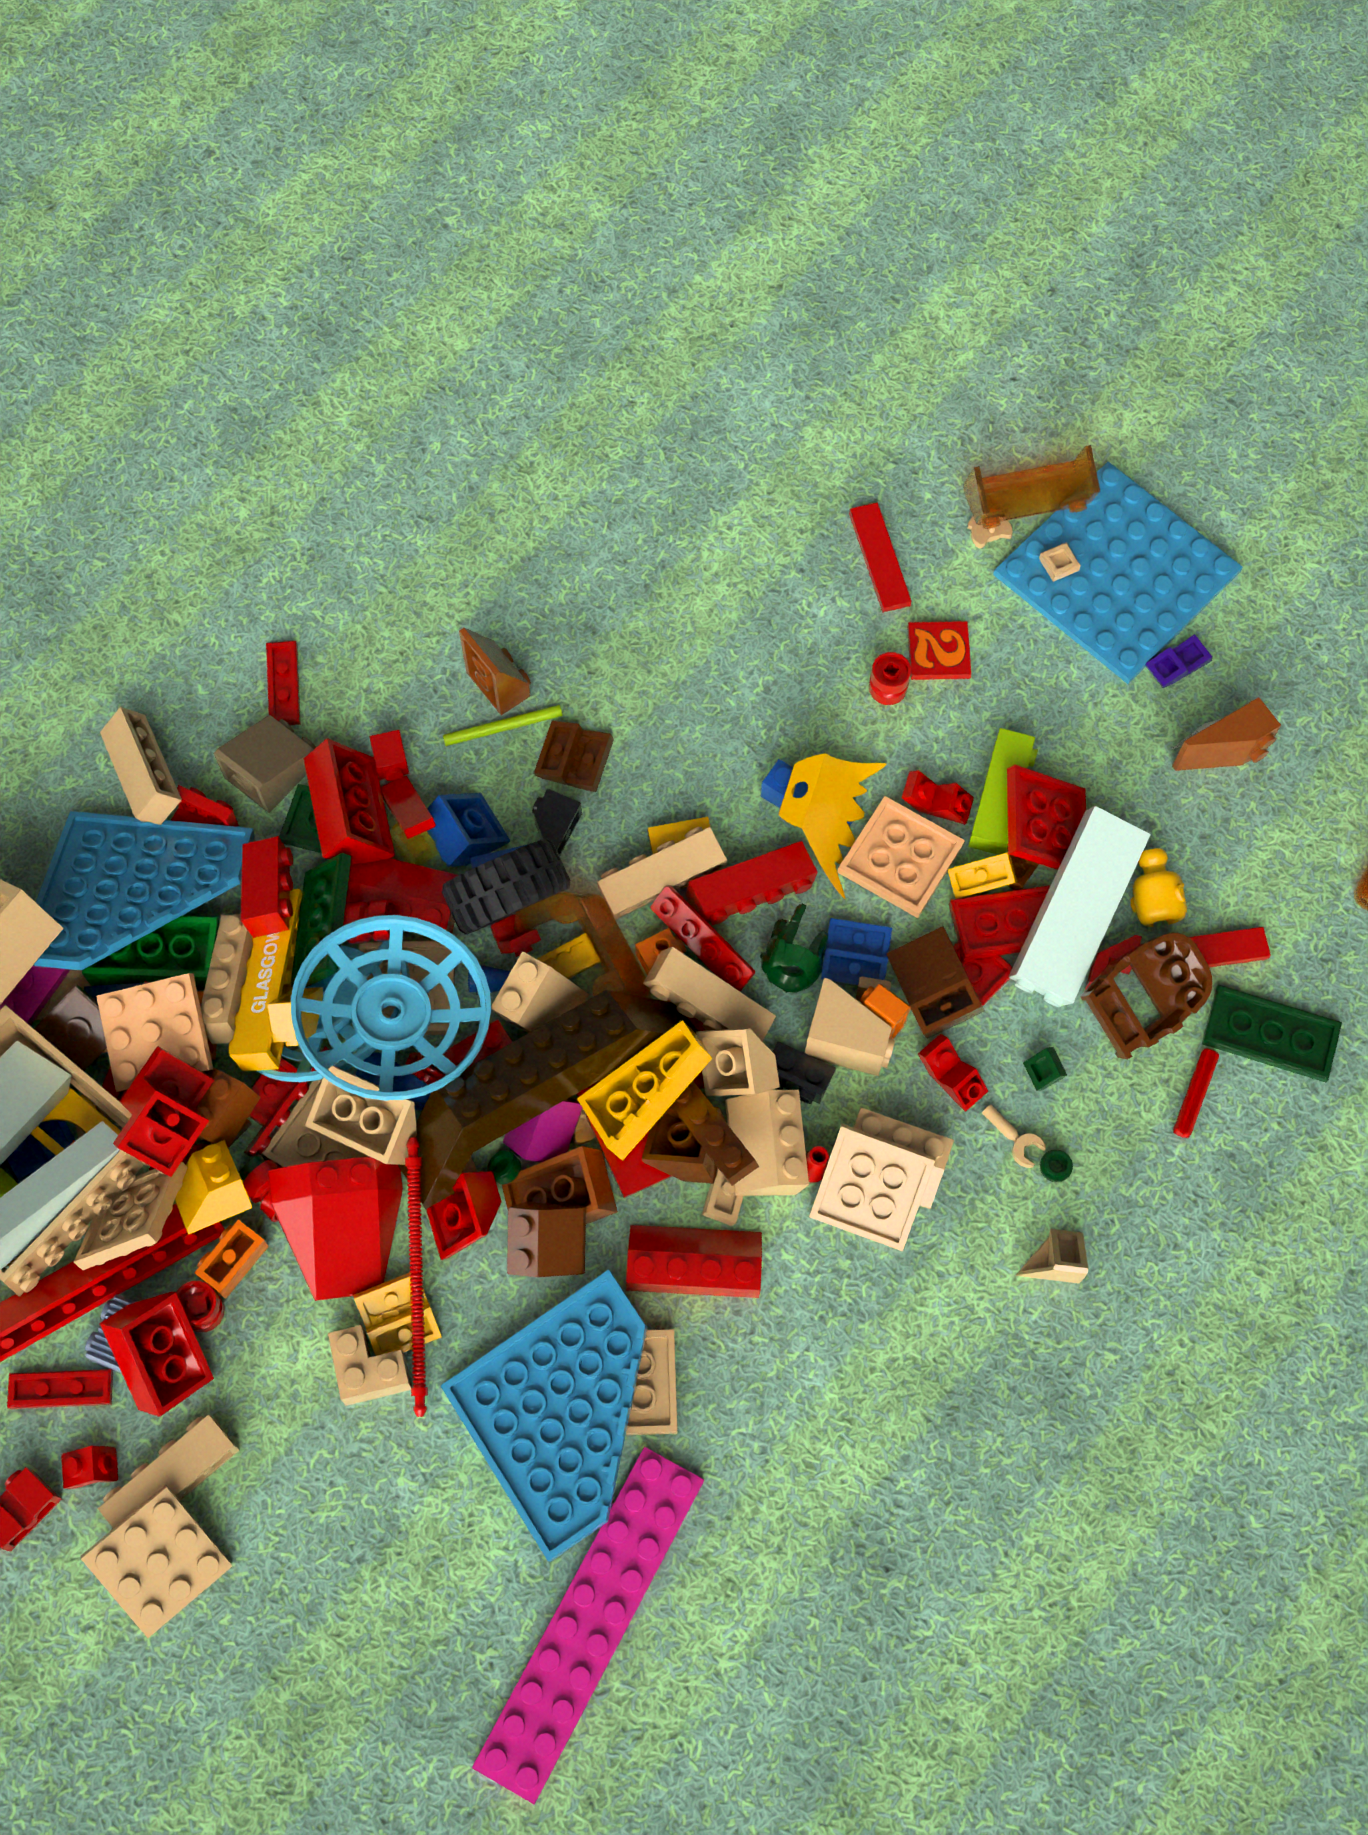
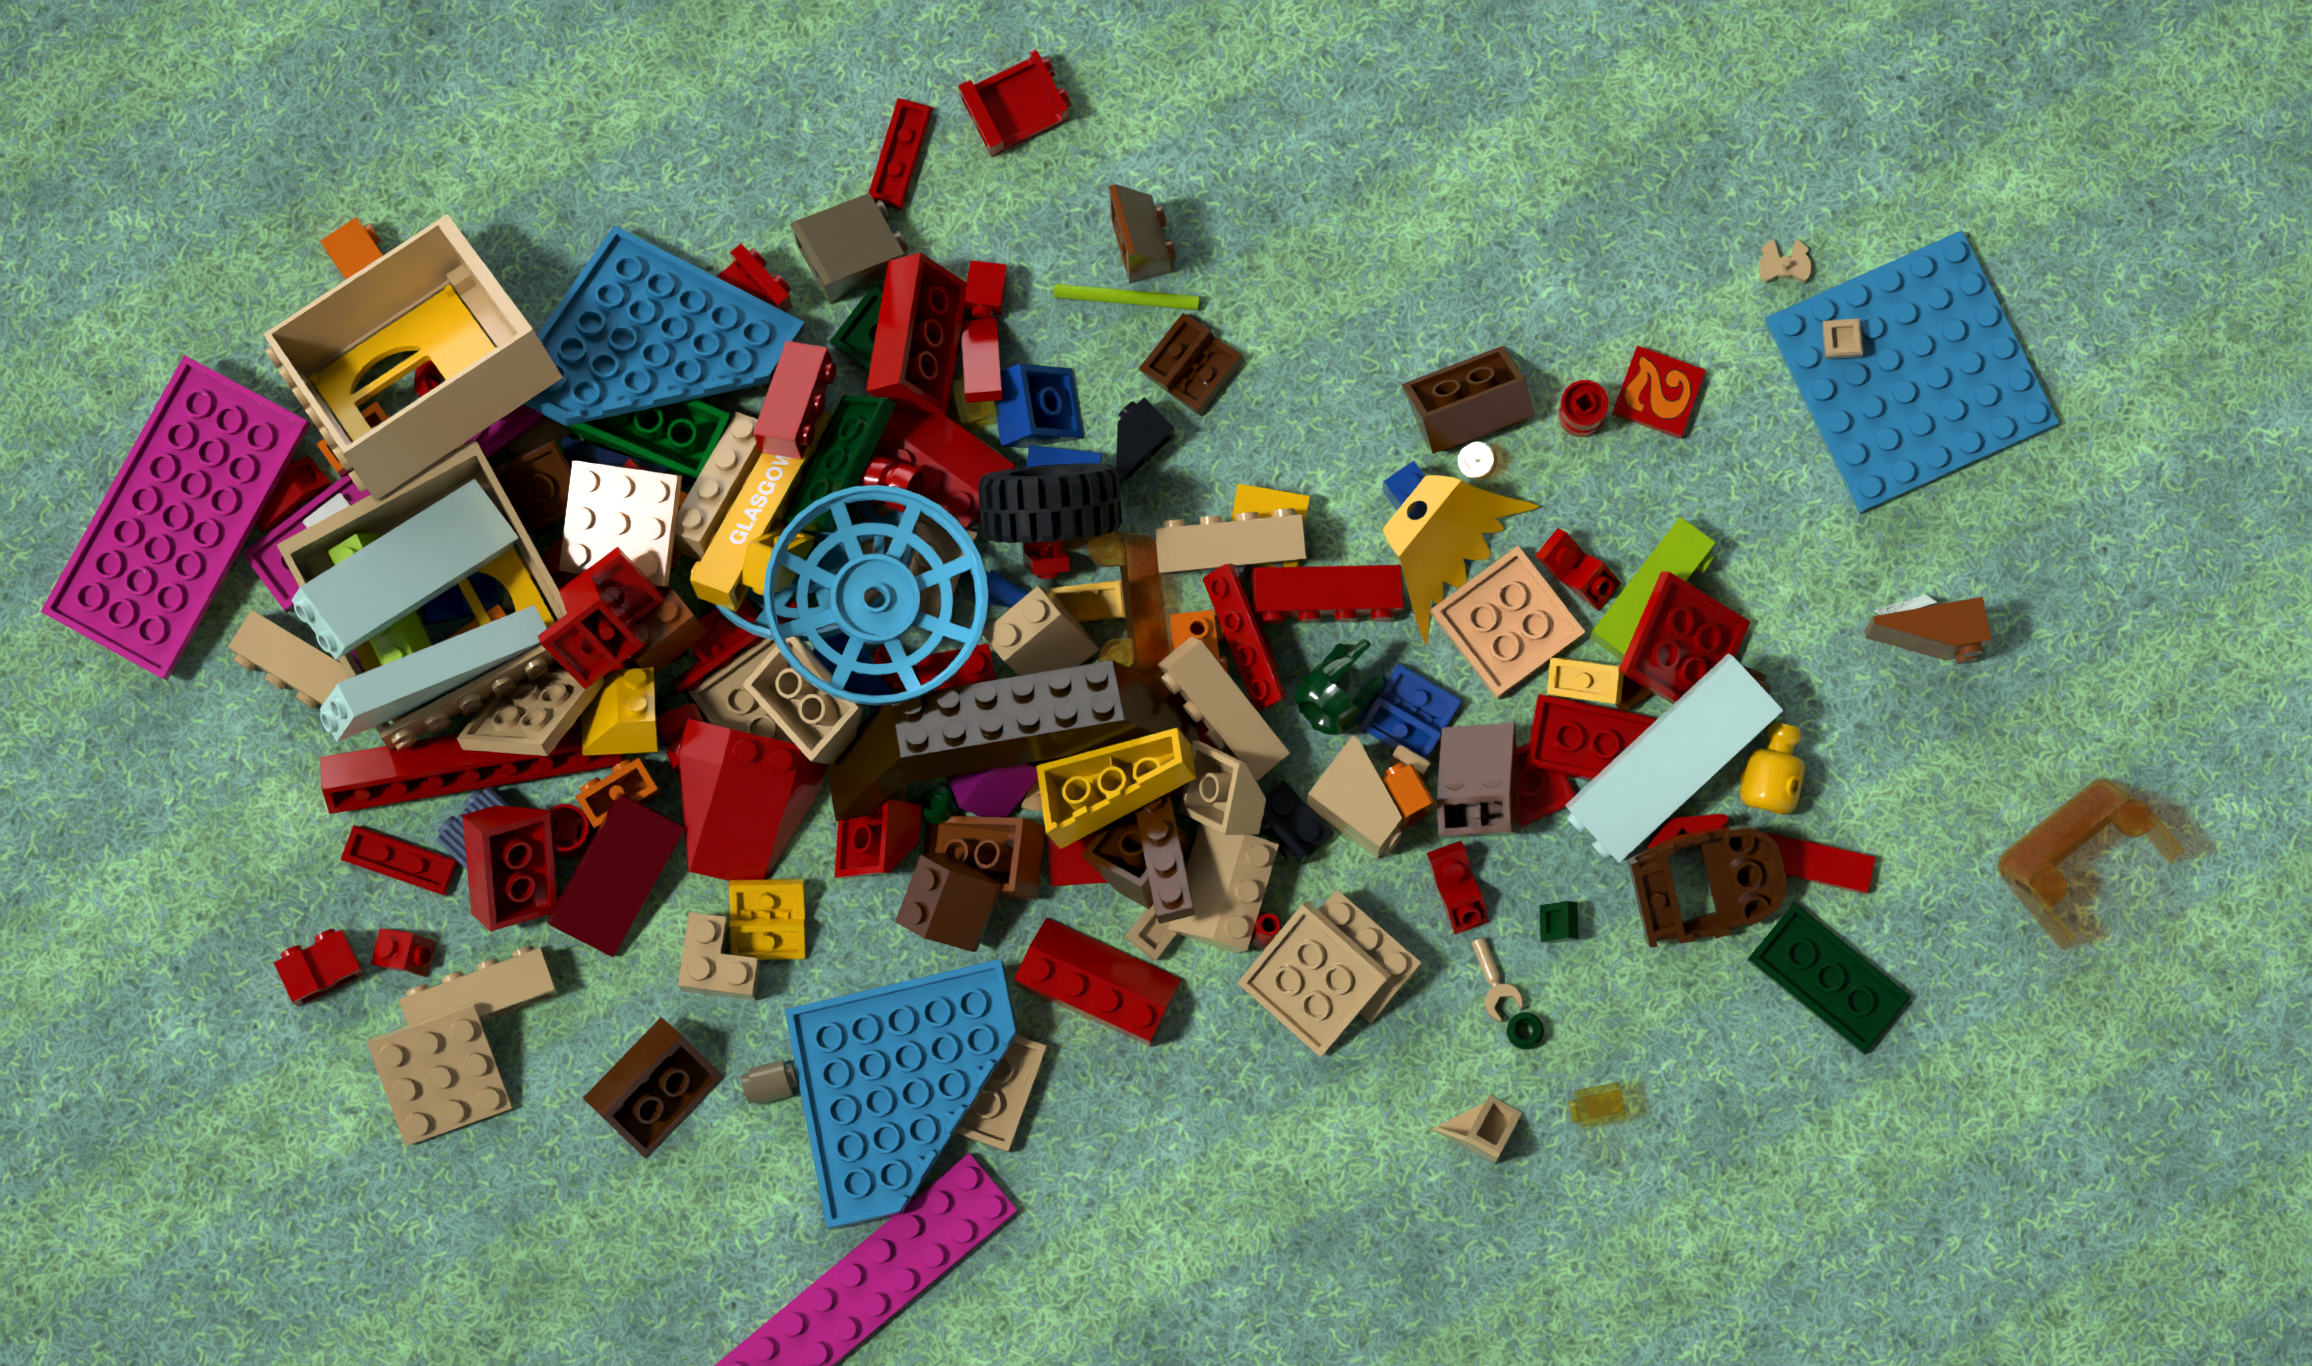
camera: 25 degrees right, 10 degrees up
(140, 766) = (707, 203): tan brick -> none
(253, 1327) = (615, 874): none -> dark red tile
(350, 1498) = (653, 1087): none -> reddish brown slope
(360, 616) = (1016, 103): none -> red panel
(419, 1389) = (762, 1004): red hose -> none
(450, 1453) = (769, 1082): none -> dark tan brick
(800, 704) = (1469, 399): none -> reddish brown slope
(825, 743) = (1477, 460): none -> tile
(880, 557) = (1640, 250): red tile -> none
(1032, 490) = (1843, 240): clear orange windscreen -> none
(1143, 1202) = (1597, 1106): none -> clear yellow brick
(1179, 662) = (1929, 510): dark purple slope -> none
(1196, 1093) = (1713, 1011): red axle -> none

